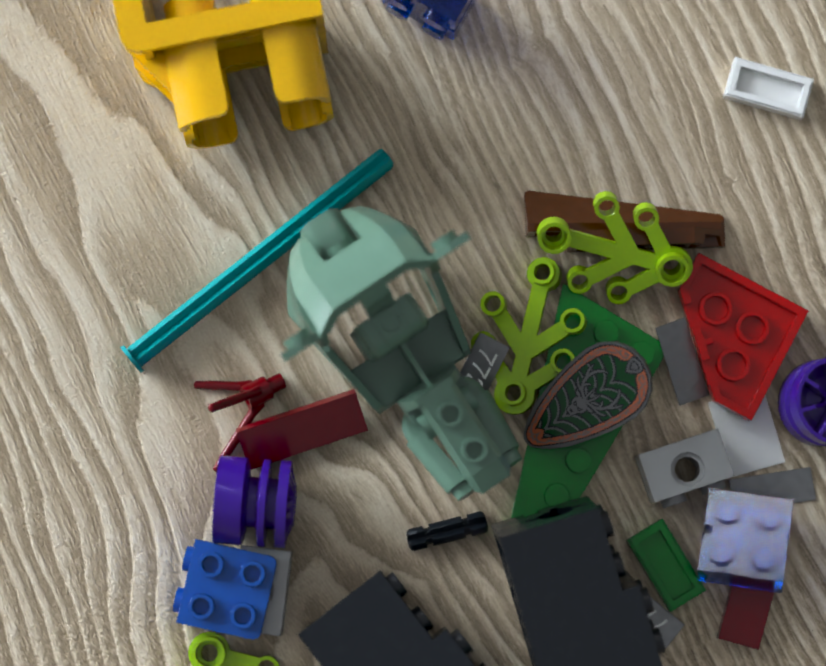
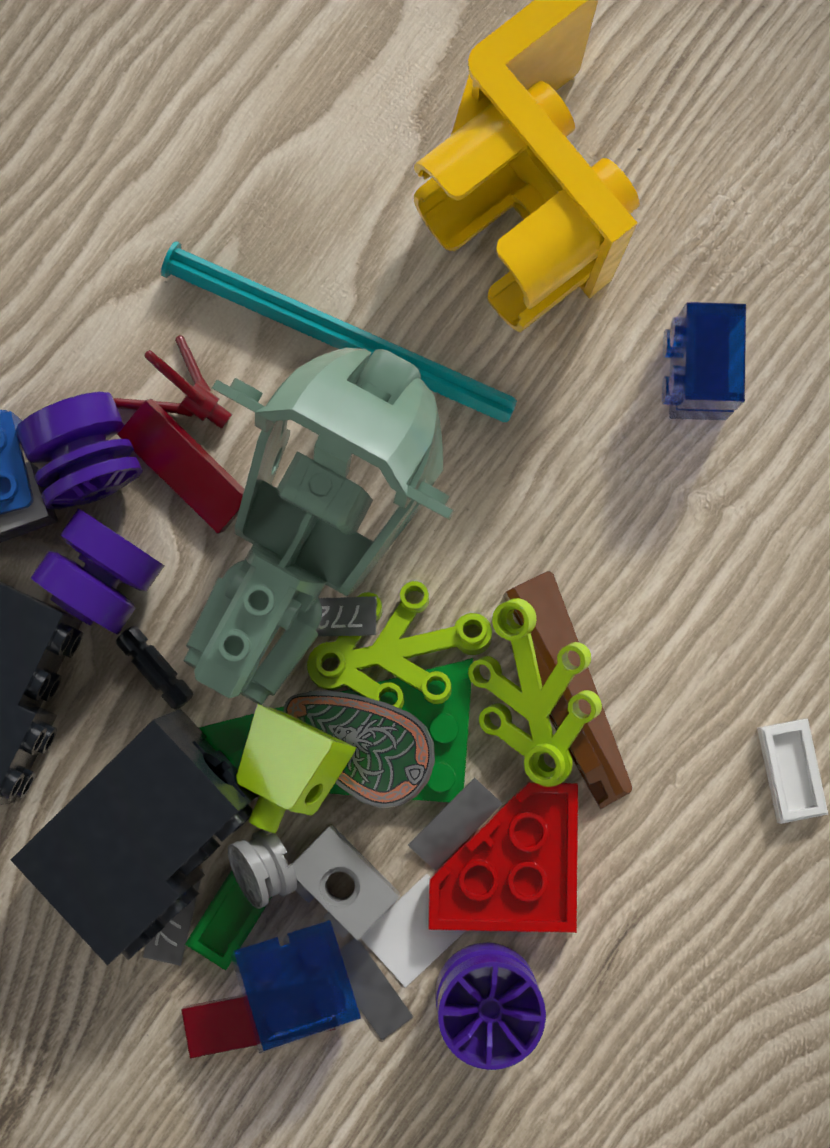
camera: 65 degrees right, 0 degrees up
(349, 522) = (92, 590): none -> dark purple wheel
(579, 460) = (288, 766): none -> lime torso
(644, 520) = (262, 868): none -> light grey wheel

